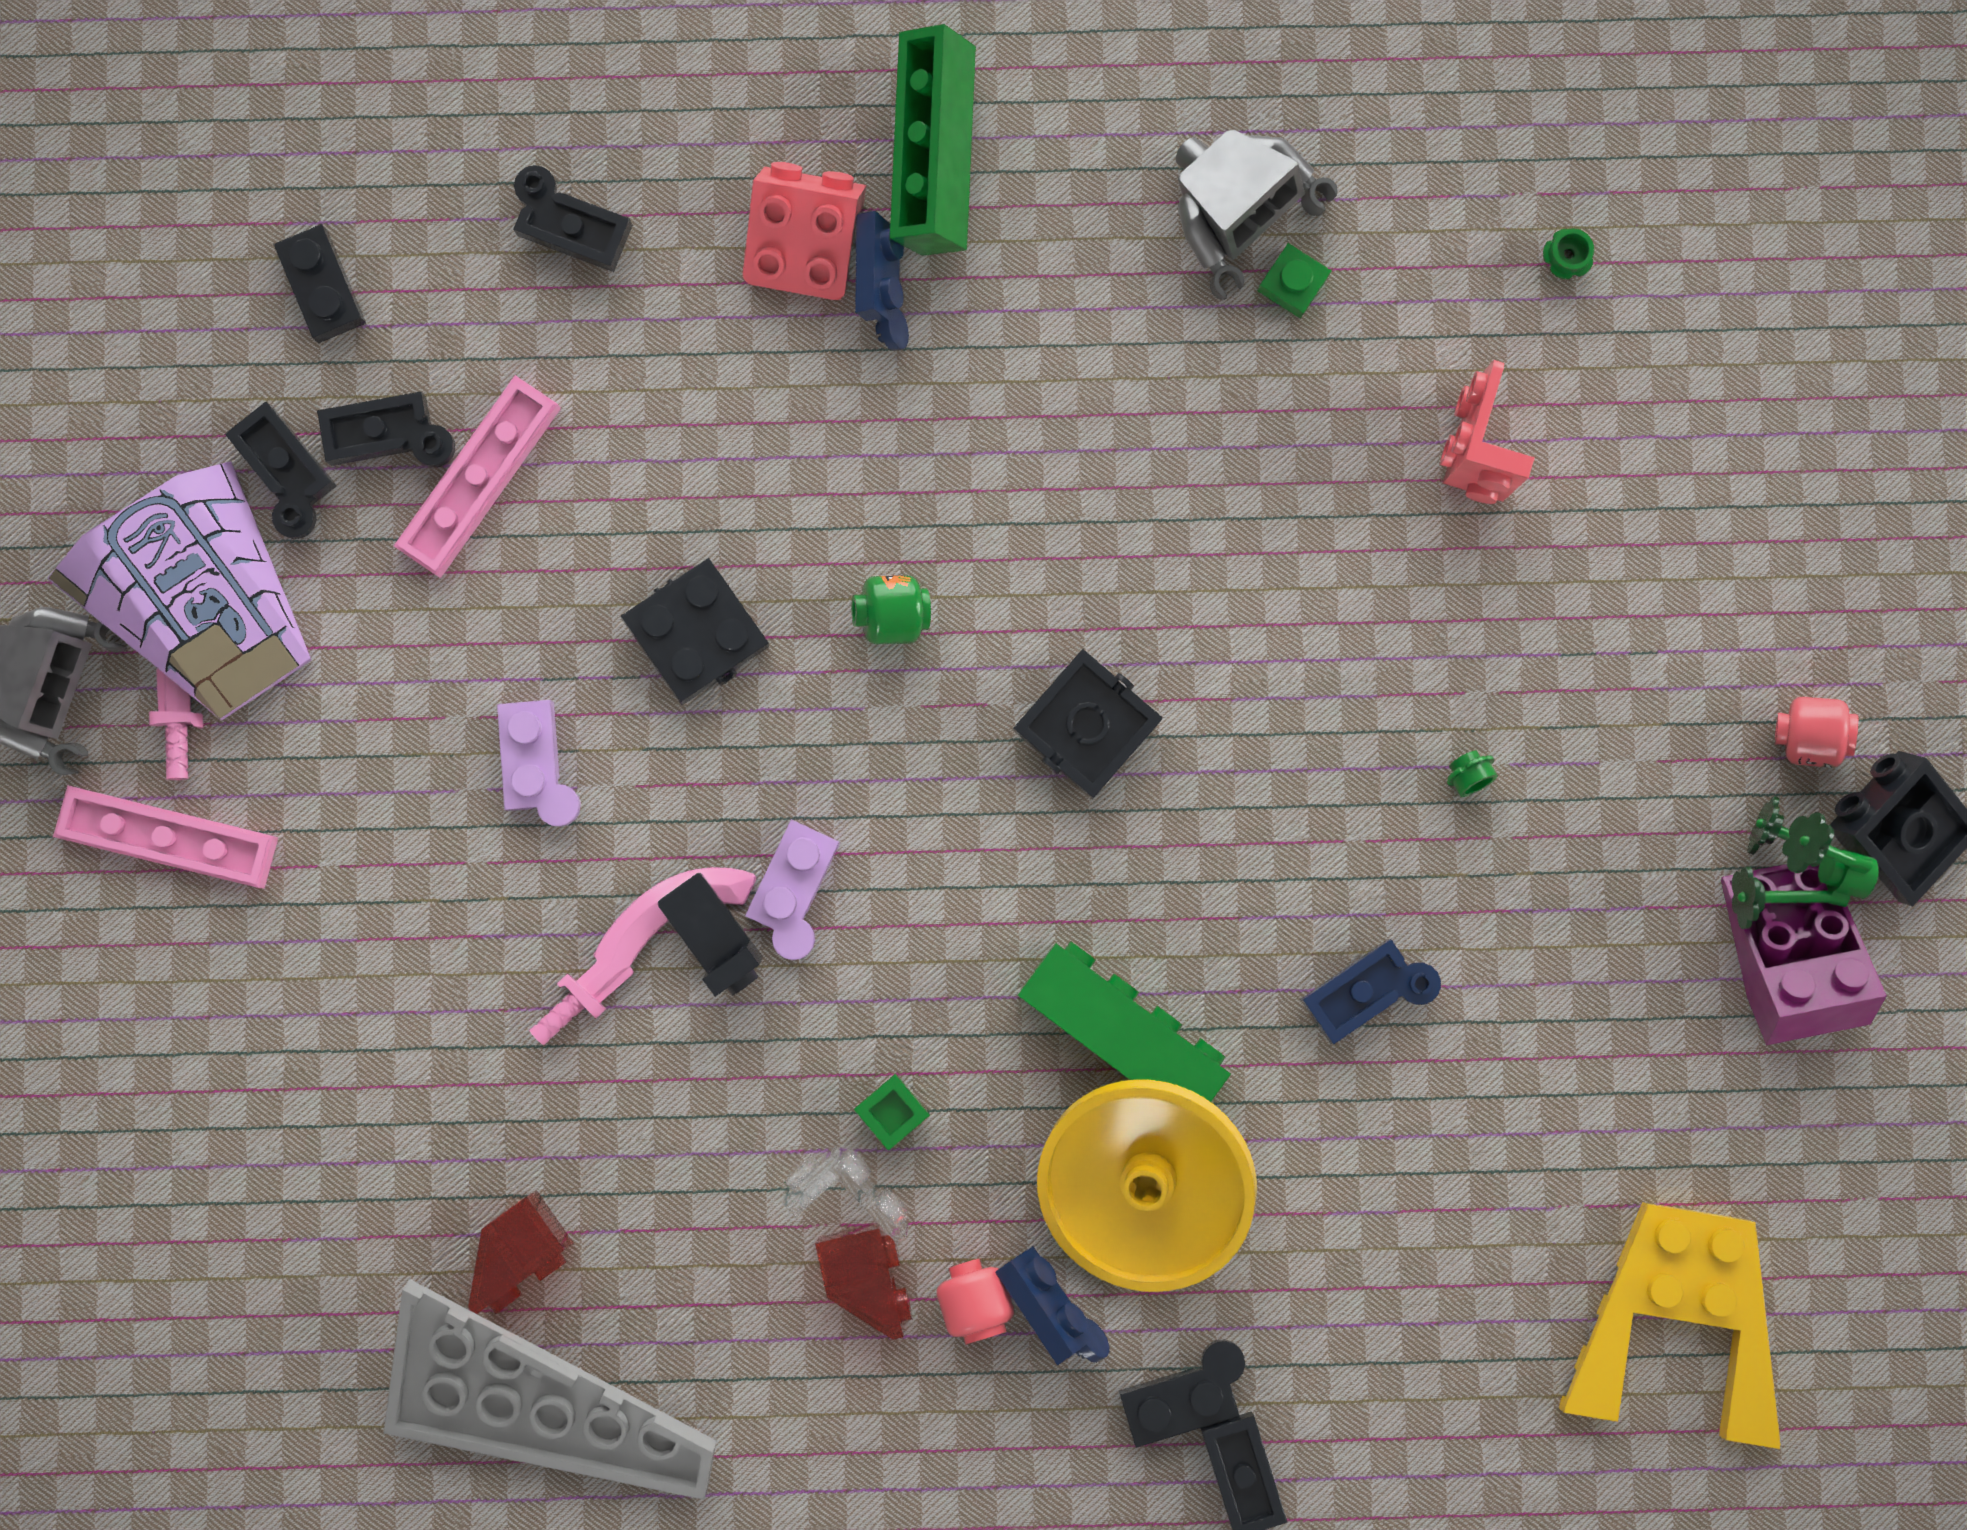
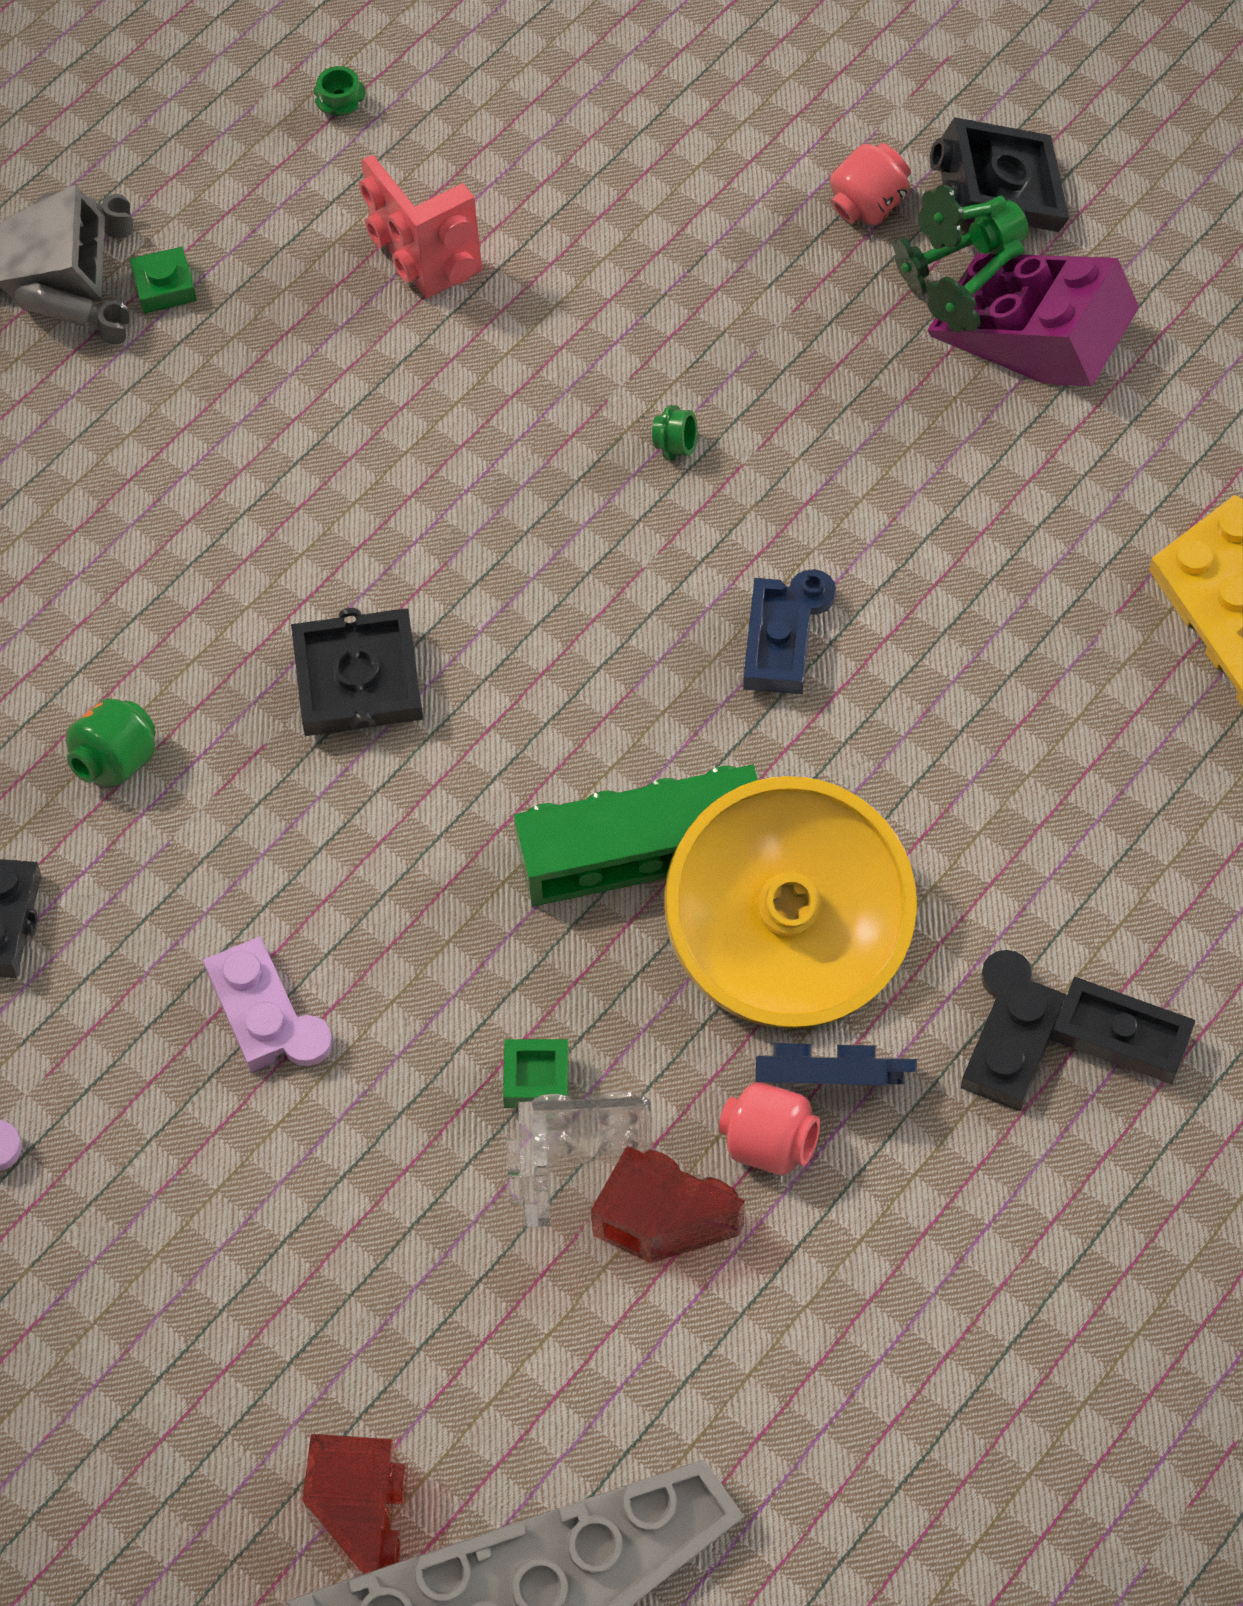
camera: 45 degrees left, 25 degrees down
(625, 941) = (169, 1181): bright pink sword -> none
(712, 935) = (237, 1099): black bracket -> none

